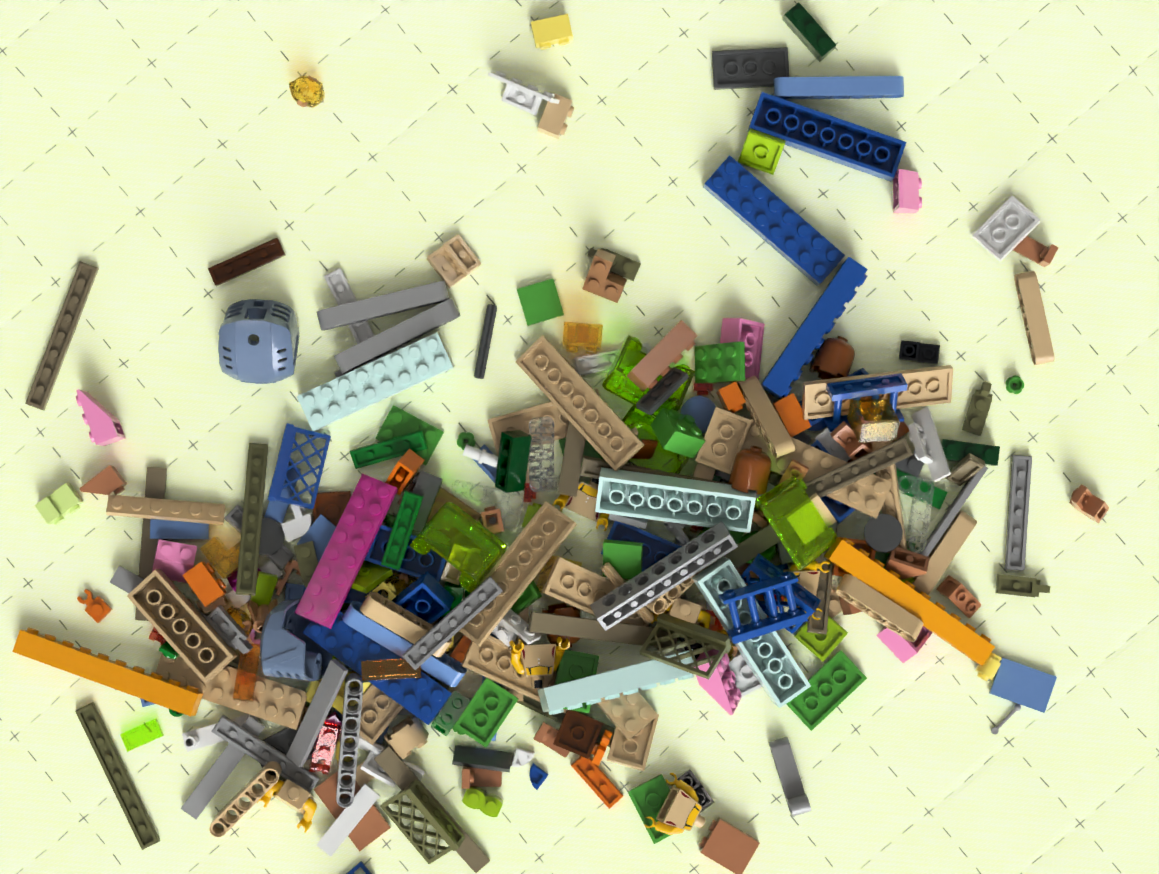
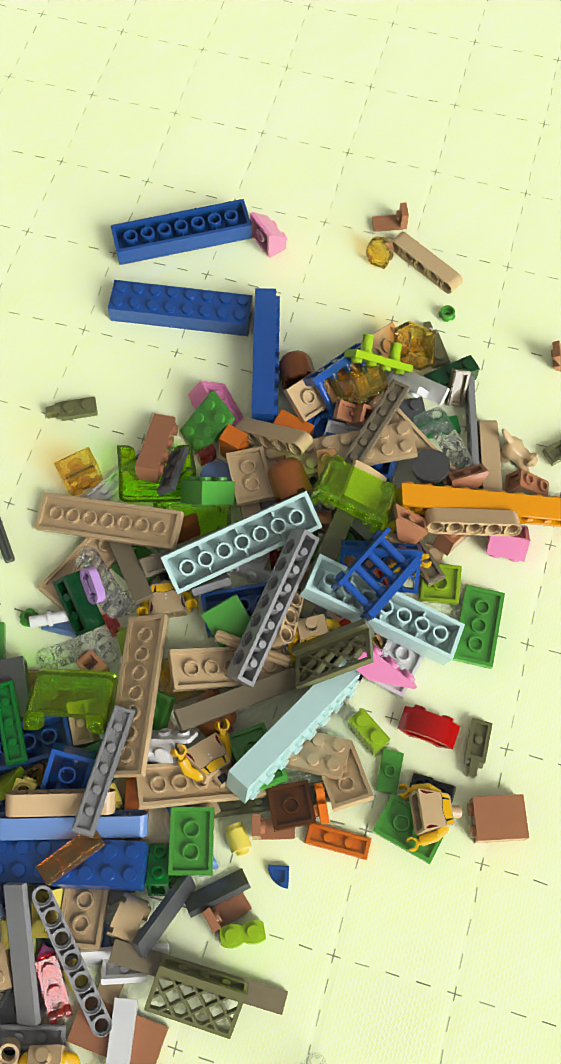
camera: 30 degrees left, 20 degrees down
(433, 752) = (163, 915): none -> dark grey tile
(522, 730) = (238, 839): none -> light yellow brick
(522, 757) = (254, 867): white tile -> none
(532, 456) = (92, 585): none -> lavender beam
(540, 302) = (28, 472): bright green tile -> none
(601, 280) = (66, 423): medium nougat brick -> none
(672, 756) = (389, 771): none -> bright green plate
(676, 716) = (368, 731): none -> lime brick
(724, 743) = (429, 727): none -> red brick
(749, 67) = (92, 225): dark grey tile -> none
(753, 782) = (477, 746): none -> olive hinge
(761, 151) = (139, 265): lime plate -> none
(789, 777) = (507, 722): light grey beam -> none
(809, 32) = (122, 177): dark green brick -> none
(822, 579) = (408, 525): none -> nougat slope
(839, 87) = (171, 196): medium blue beam -> none
(897, 401) = (366, 355): none -> lime plate
(919, 352) = (354, 334): black slope -> none
(955, 404) = (417, 346): none -> clear yellow brick
(972, 560) = (515, 451): none -> tan animal
(997, 281) = (379, 252): none -> clear yellow hair
(1006, 228) = (359, 218): white plate -> none
(1018, 512) = (522, 399): light grey tile -> none

